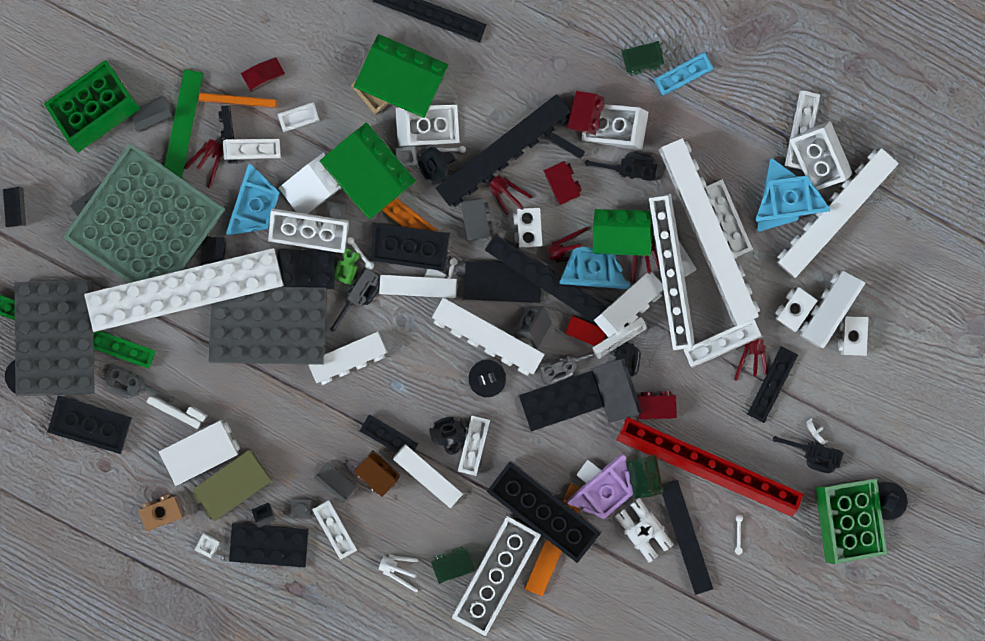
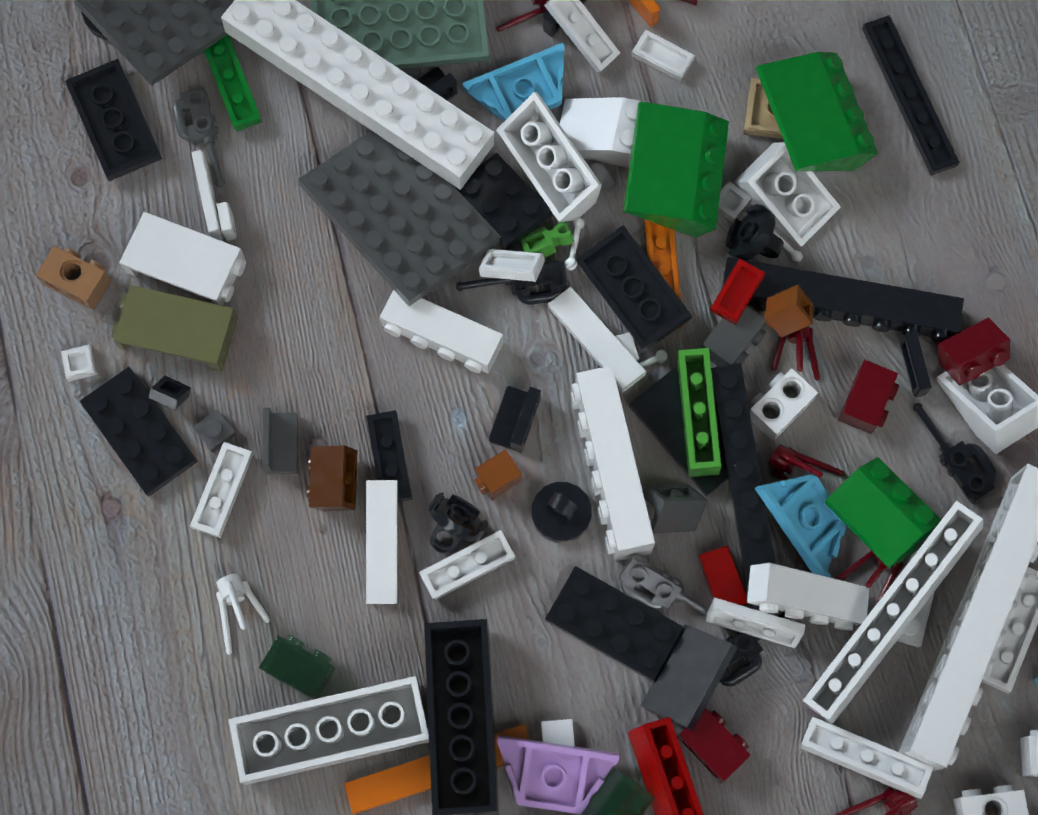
camera: 50 degrees right, 15 degrees down
(346, 296) = (511, 265): none -> white tile
(421, 360) = (515, 418): none -> black panel
(443, 394) = (497, 475): none -> dark orange brick
(457, 200) = (737, 291): none -> red tile
(489, 185) = (789, 311): none -> dark orange brick
(499, 274) = (698, 412): none -> bright green brick

